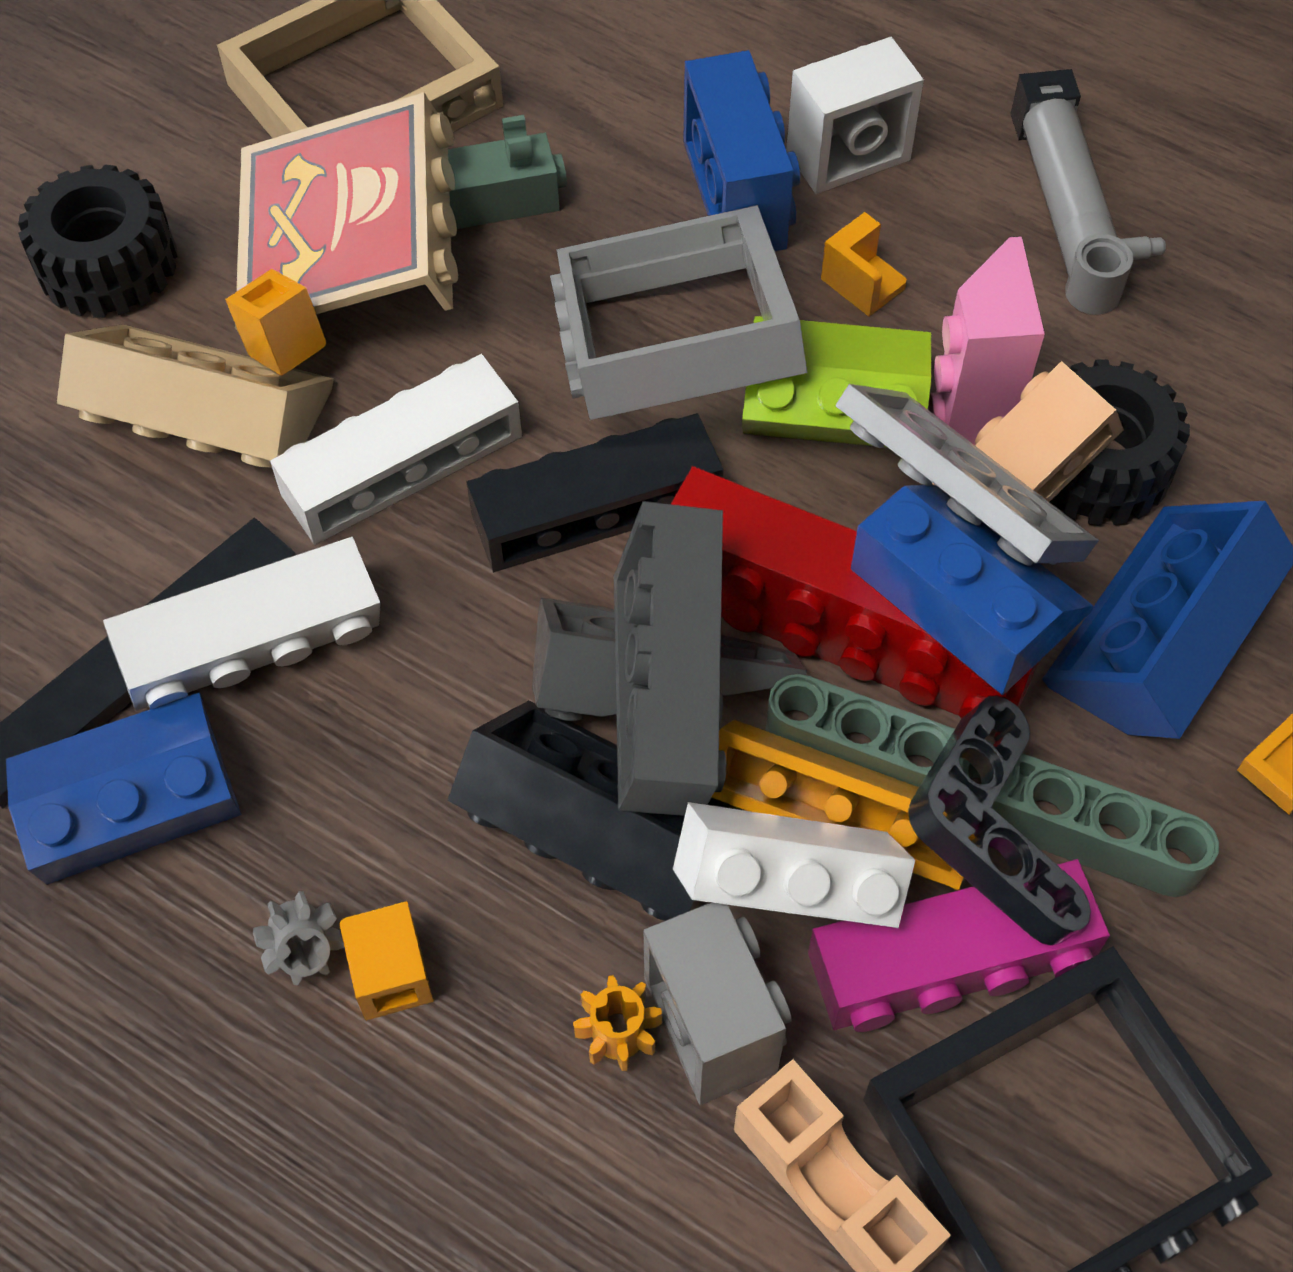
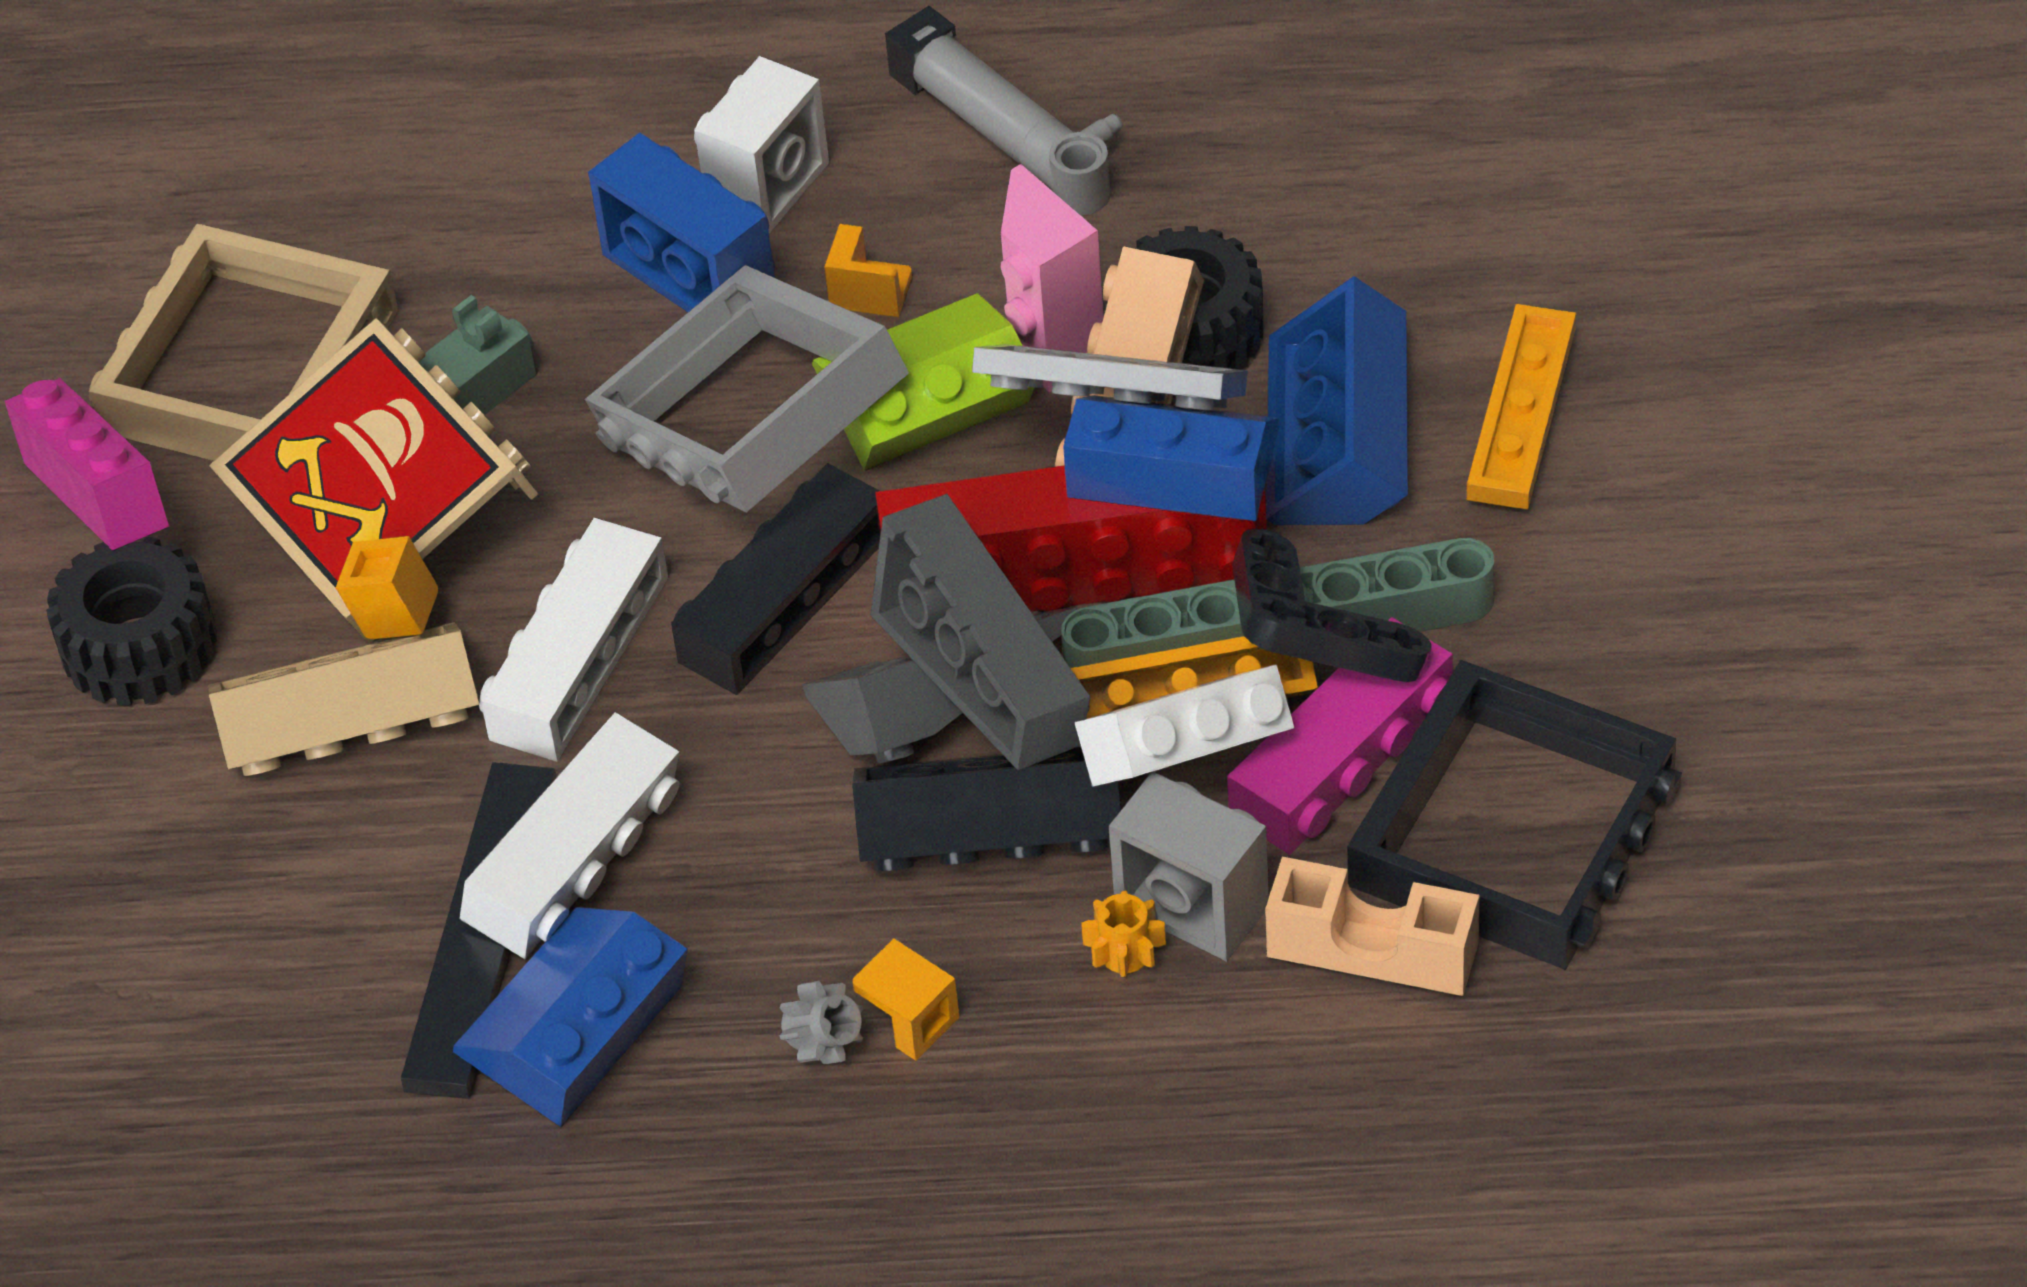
camera: 30 degrees left, 10 degrees down
(155, 99) = (86, 463): none -> dark pink brick

